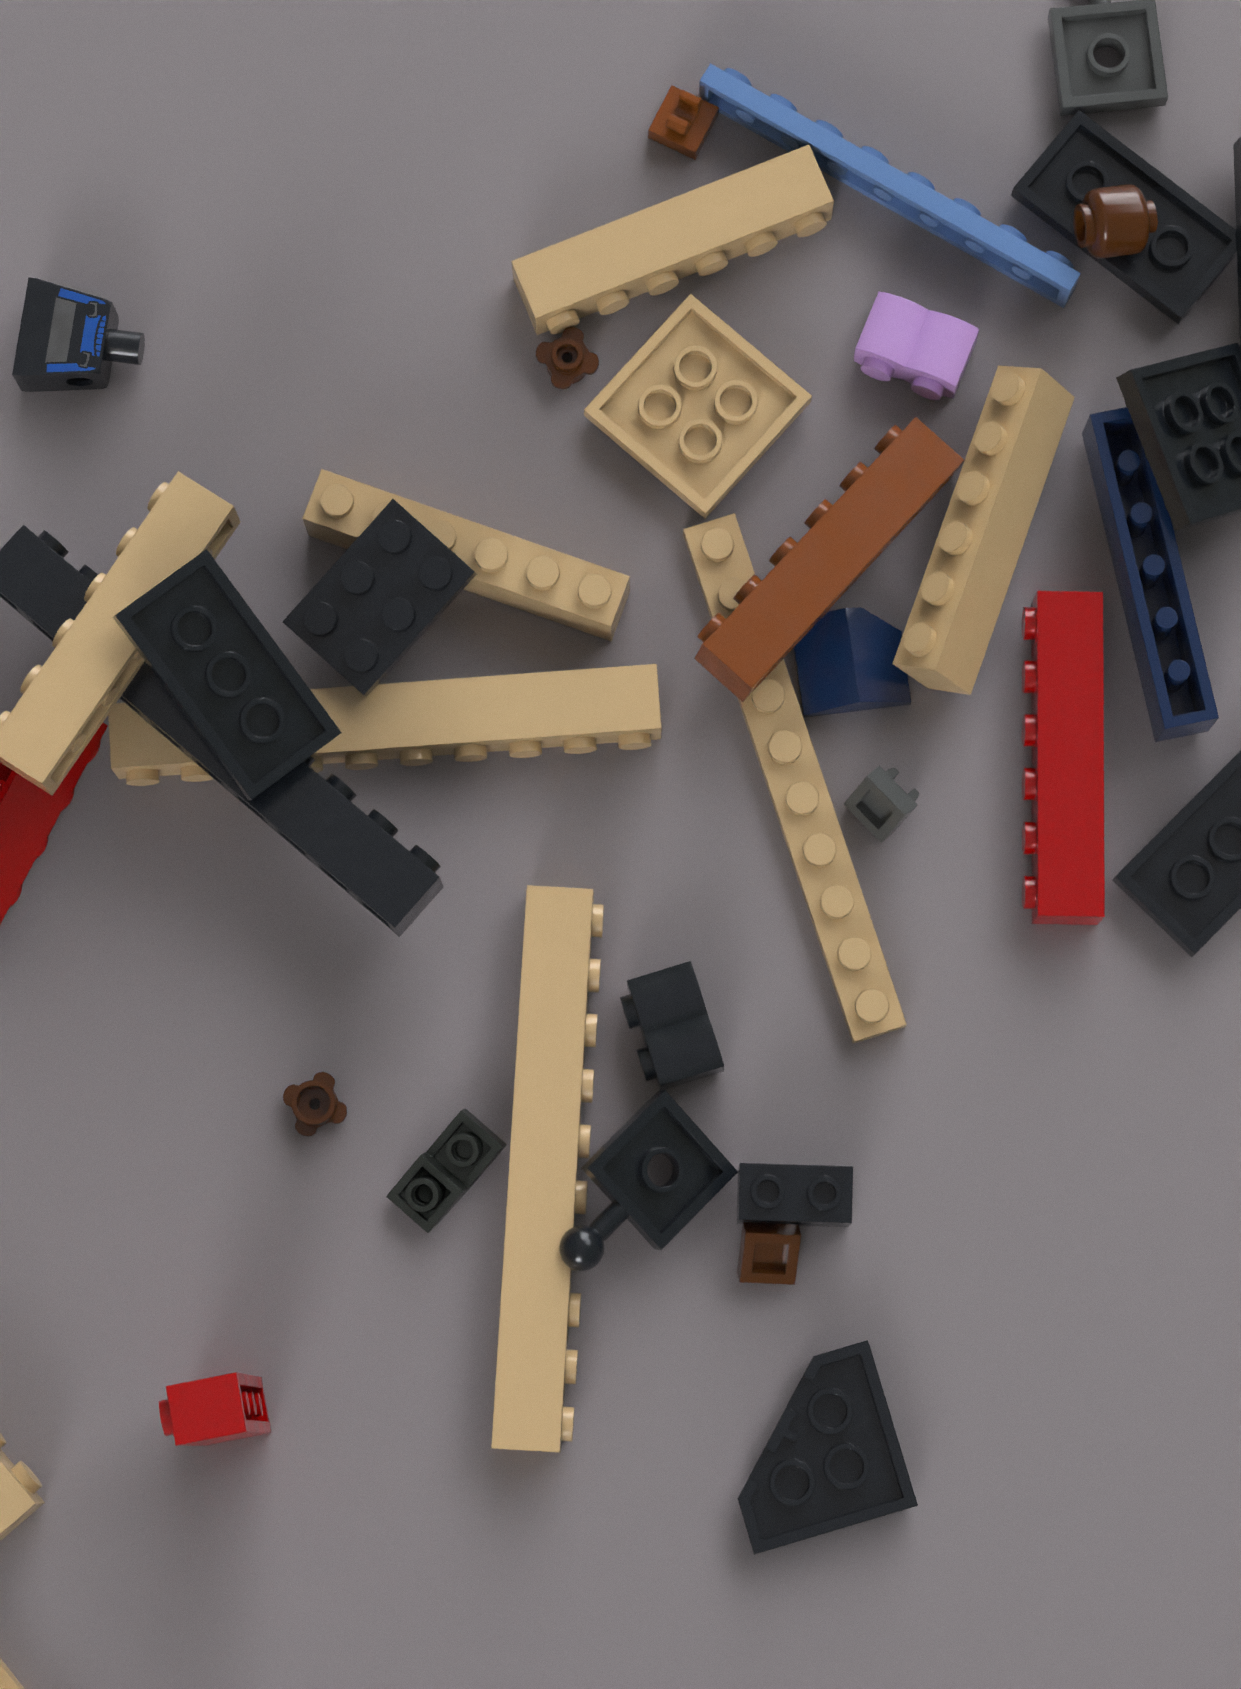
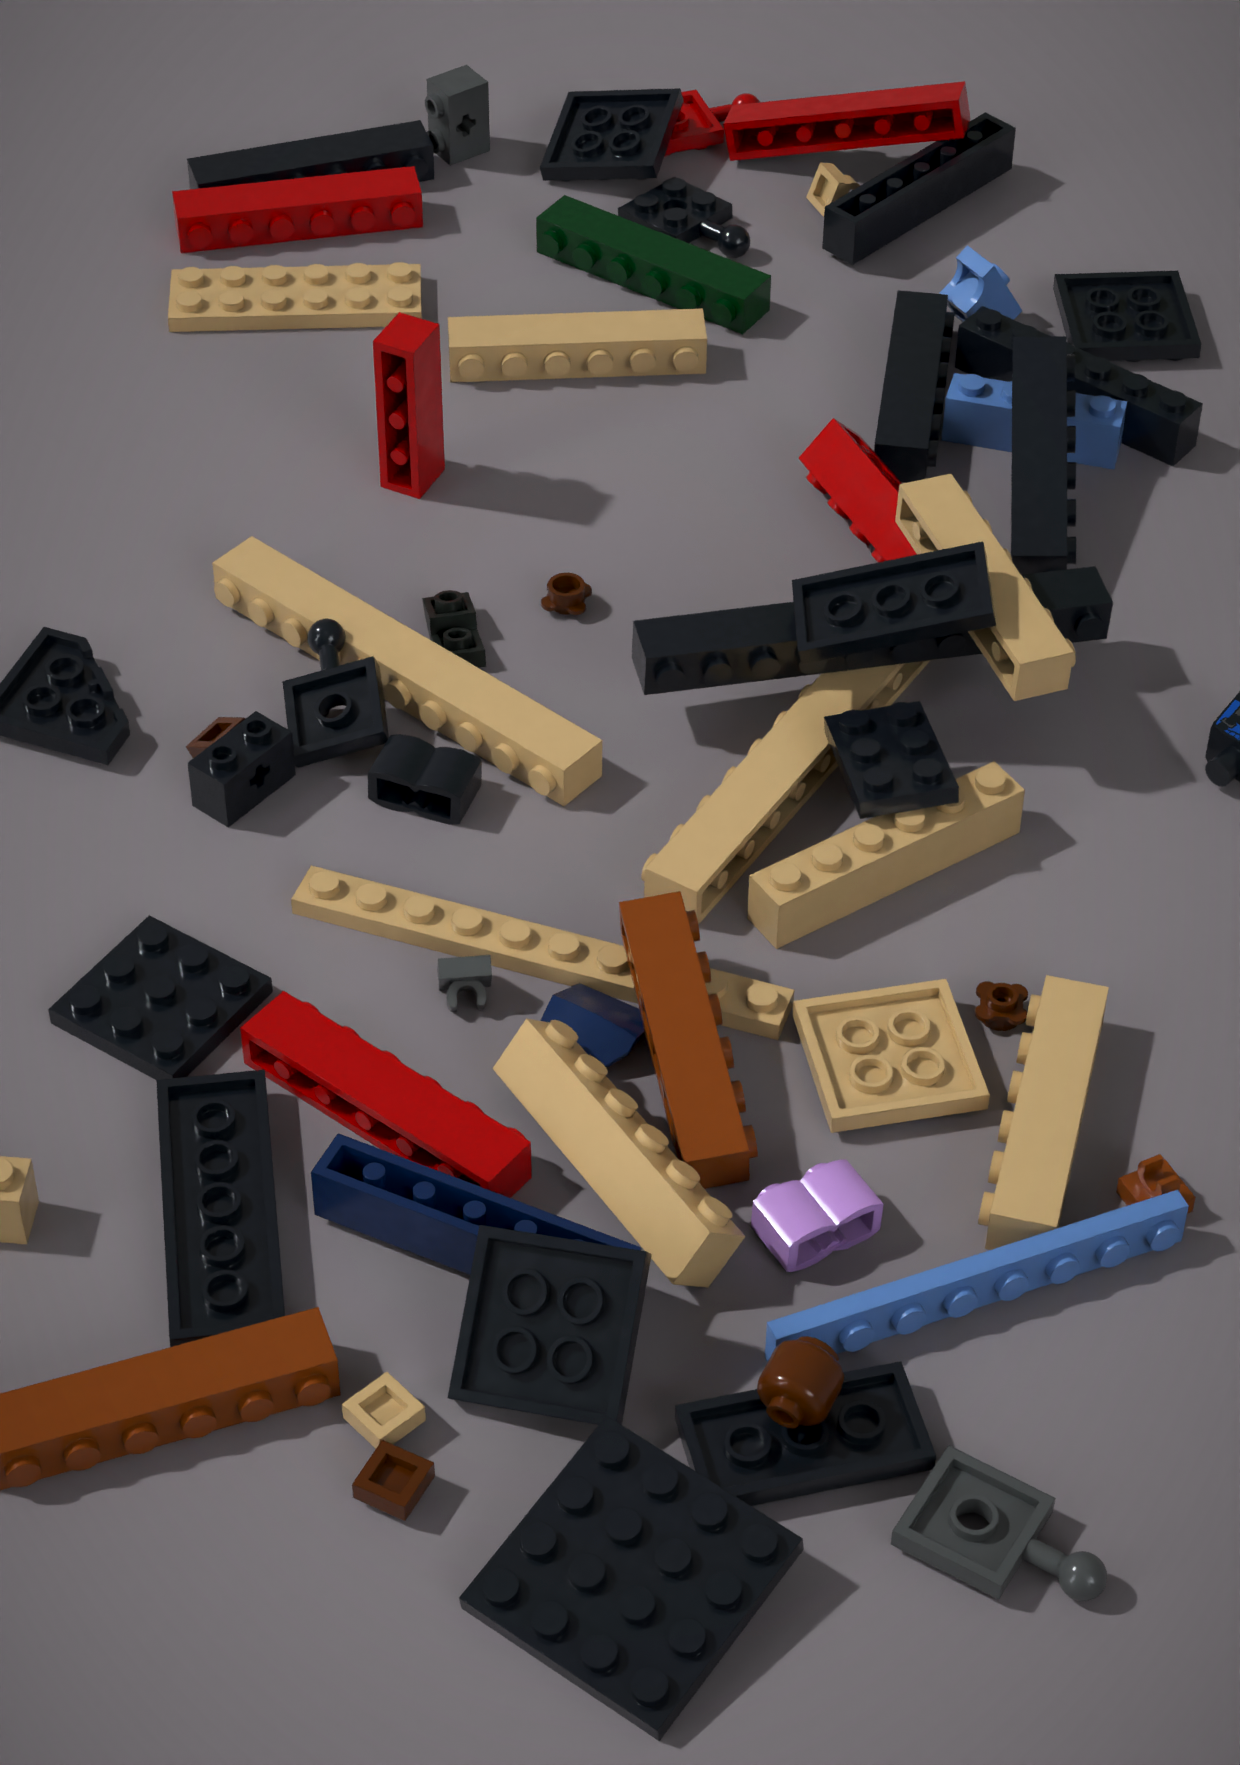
camera: 125 degrees right, 35 degrees down
(1095, 1043) = (160, 1001): none -> black plate

